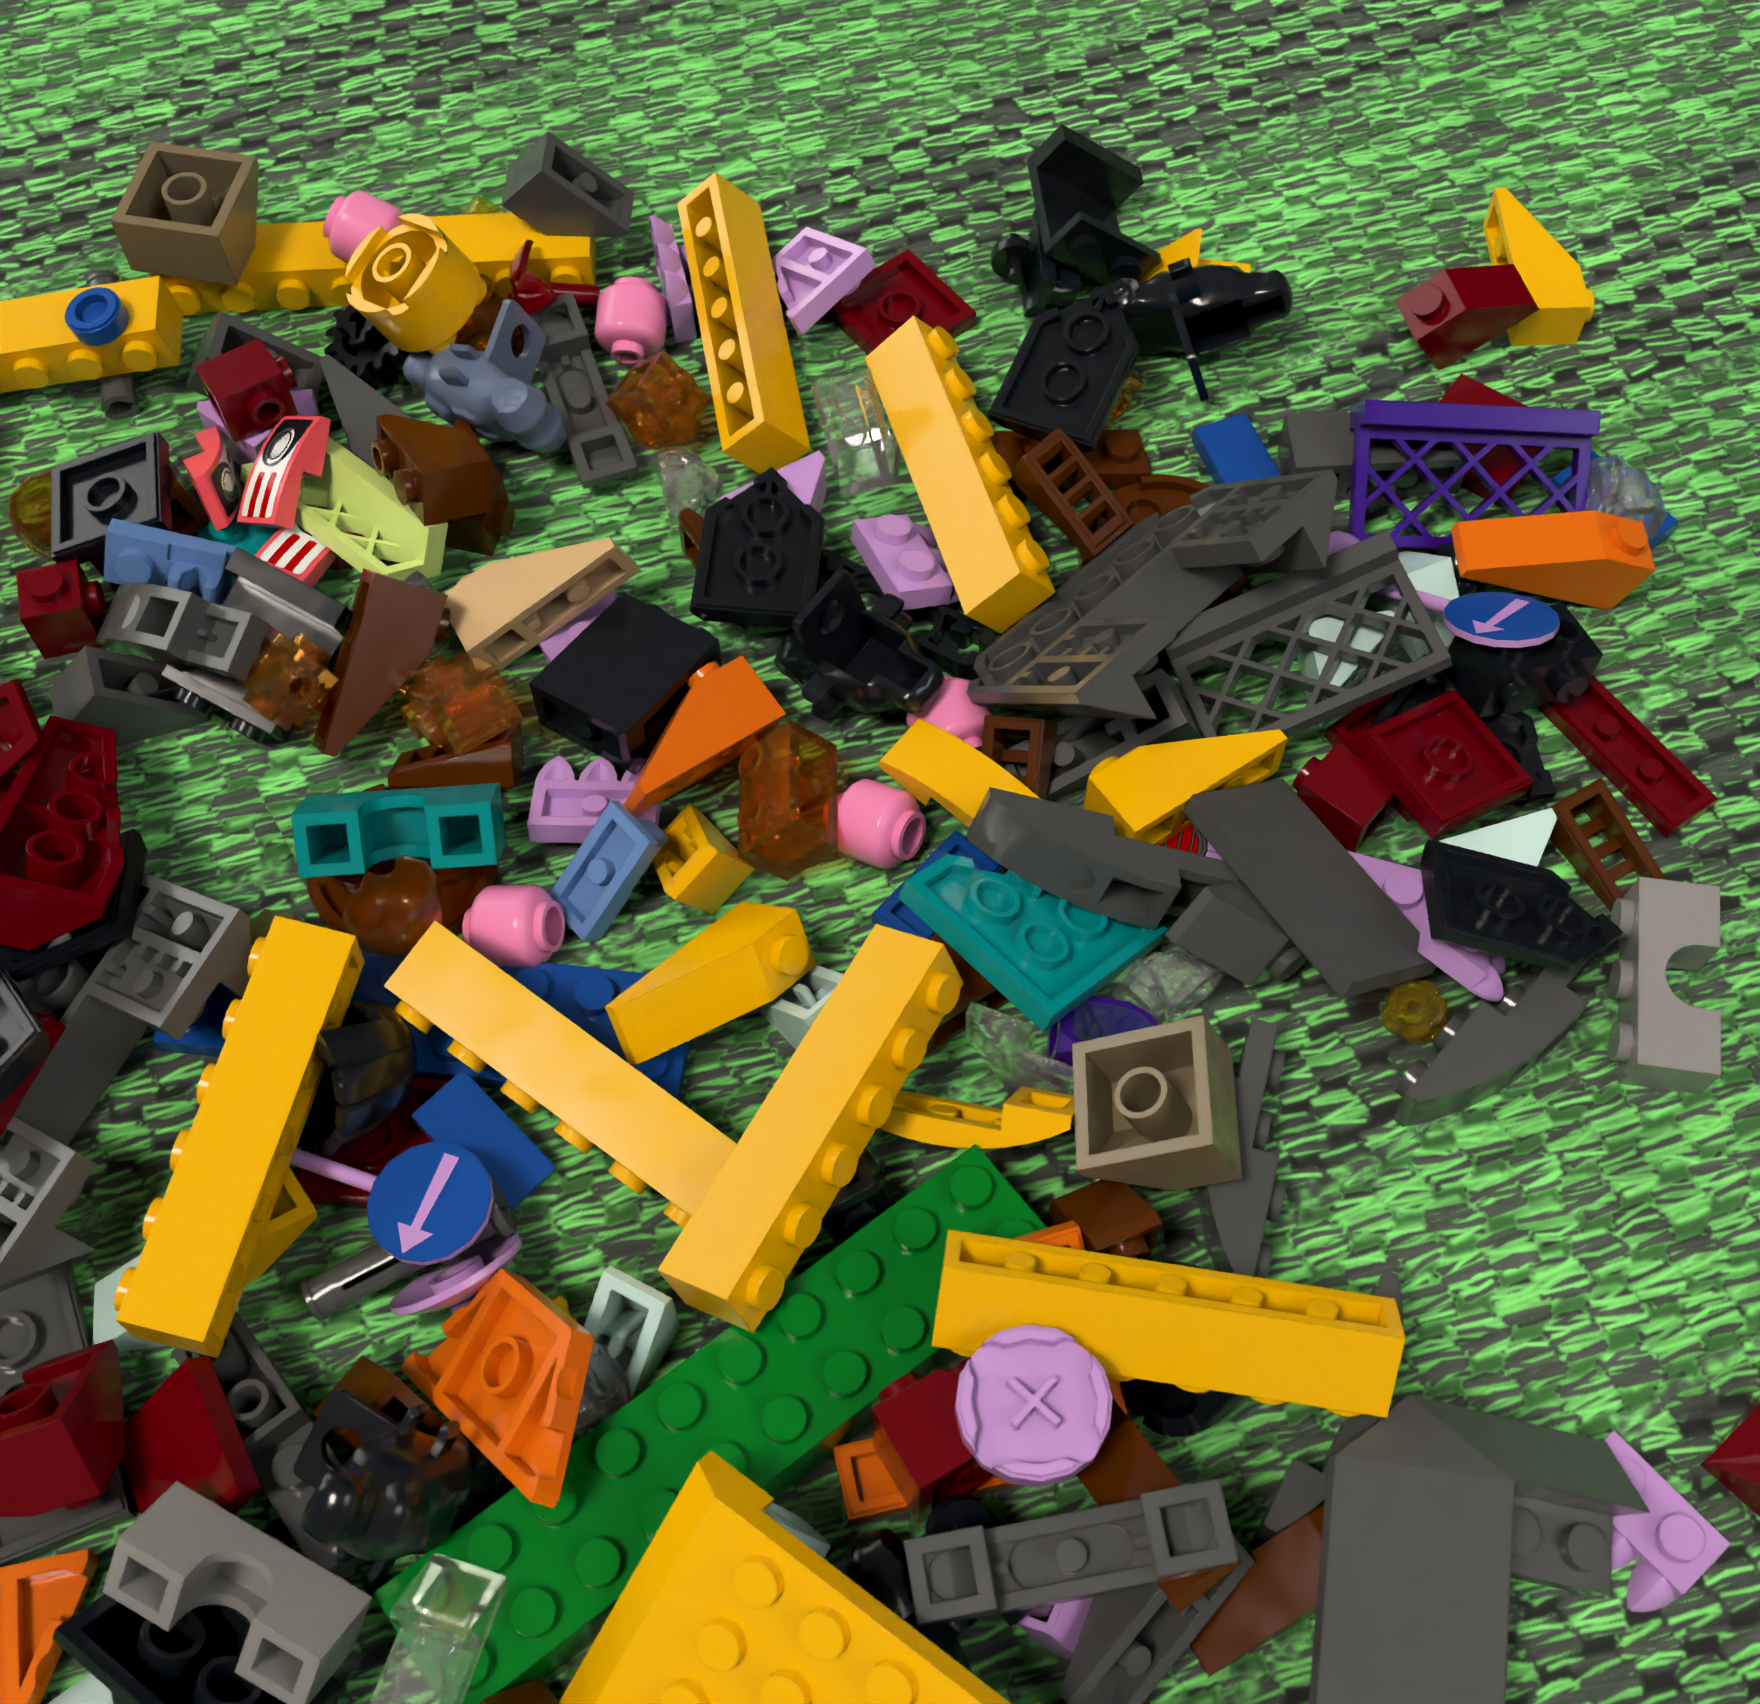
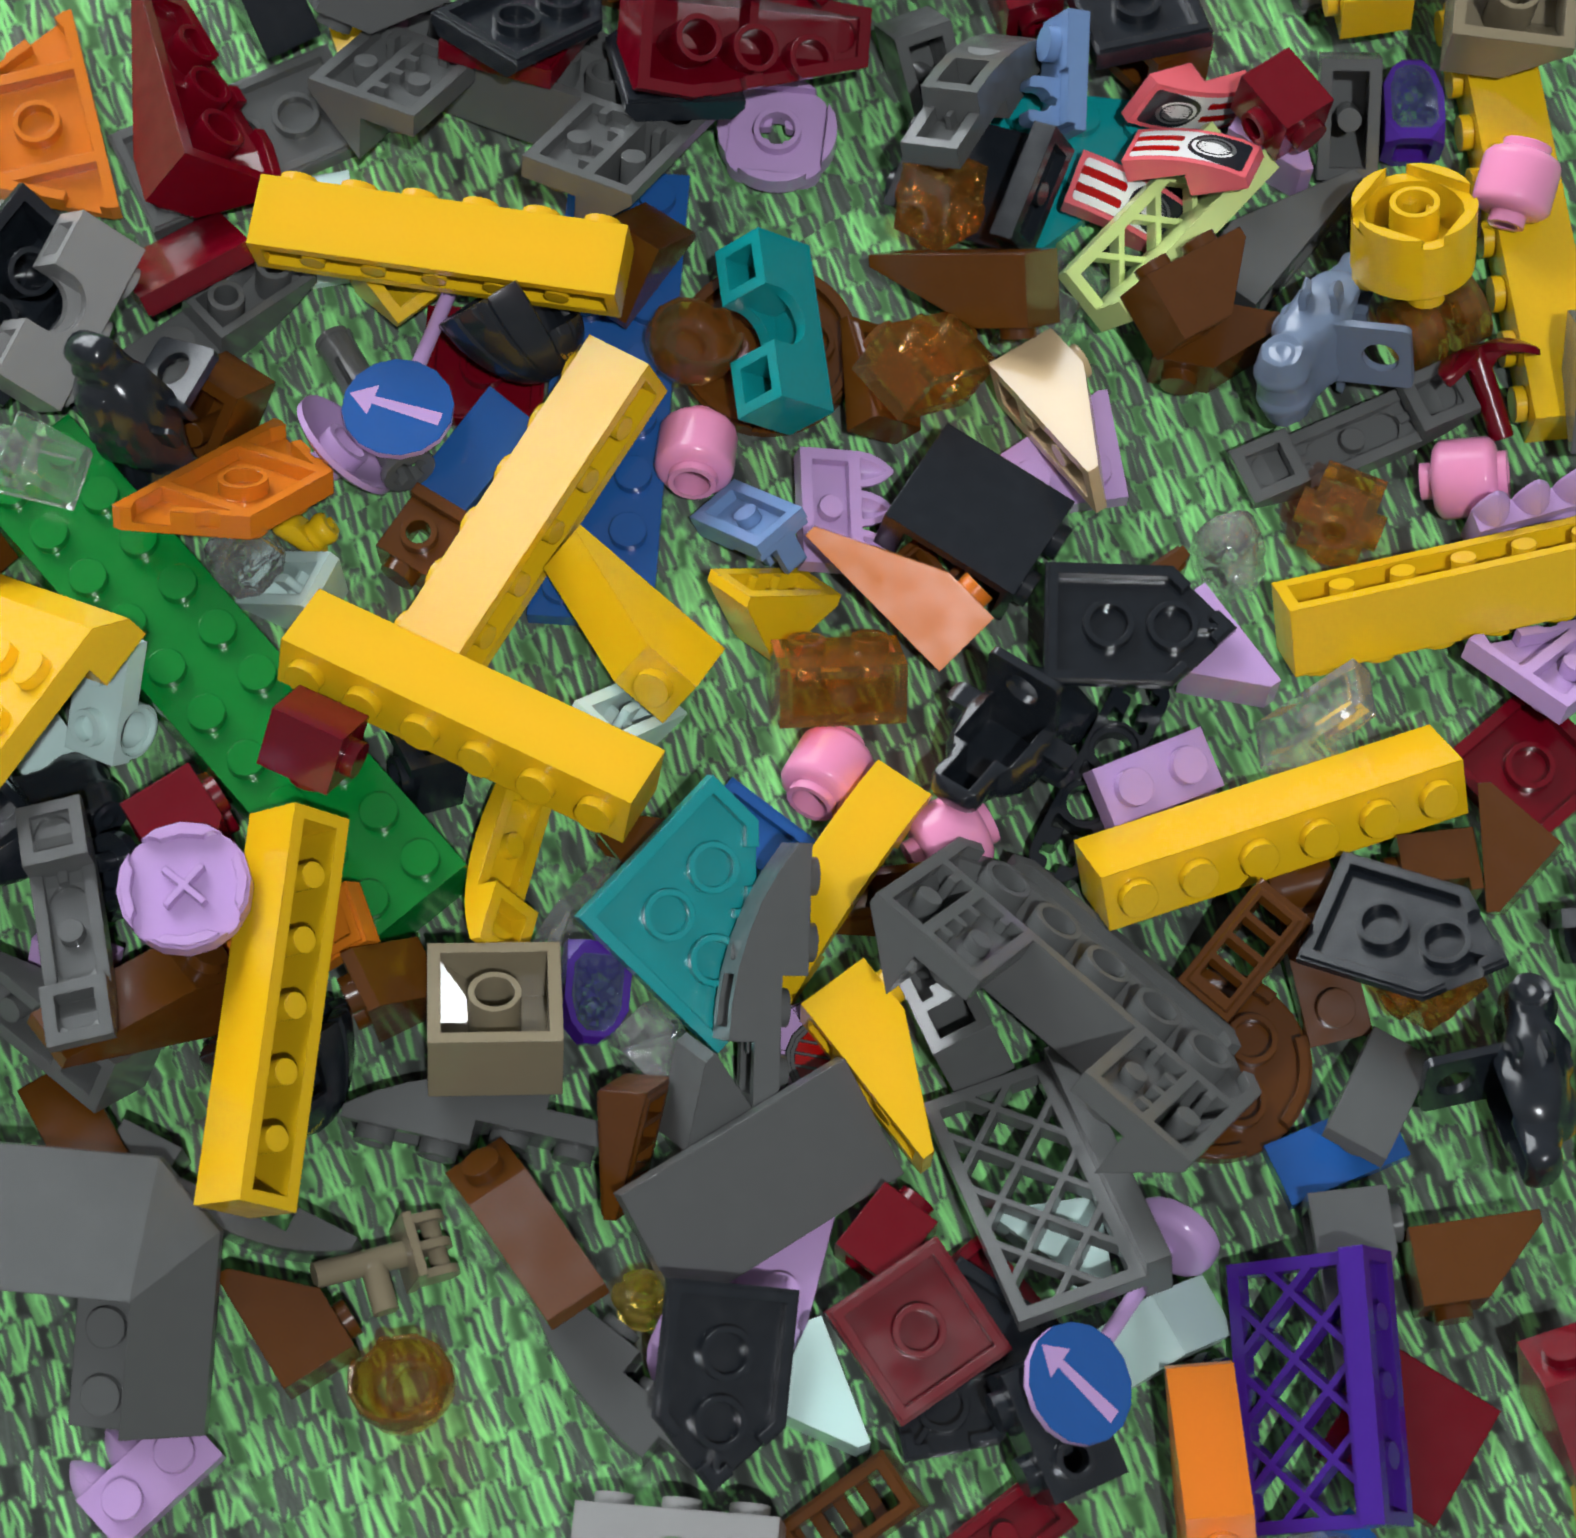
camera: 85 degrees right, 10 degrees up
(192, 824) = (785, 165): none -> lavender plate
(274, 313) = (1411, 115): none -> rock
(584, 1226) = (425, 512): none -> reddish brown brick
(846, 1273) = (314, 741): none -> dark red brick
(984, 311) = (1512, 848): none -> reddish brown slope
(988, 360) = (1441, 855): none -> reddish brown brick
(1211, 419) = (1376, 1097): none -> dark grey slope
(1249, 990) = (627, 1132): none -> reddish brown slope
(1337, 369) = (1462, 1262): none -> reddish brown slope
(1380, 1091) = (526, 1233): none -> reddish brown slope
(1389, 1229) = (403, 1253): none -> dark tan arm
(1480, 1343) = (293, 1328): none -> reddish brown slope
(1527, 1236) = (402, 1384): none -> clear orange hair

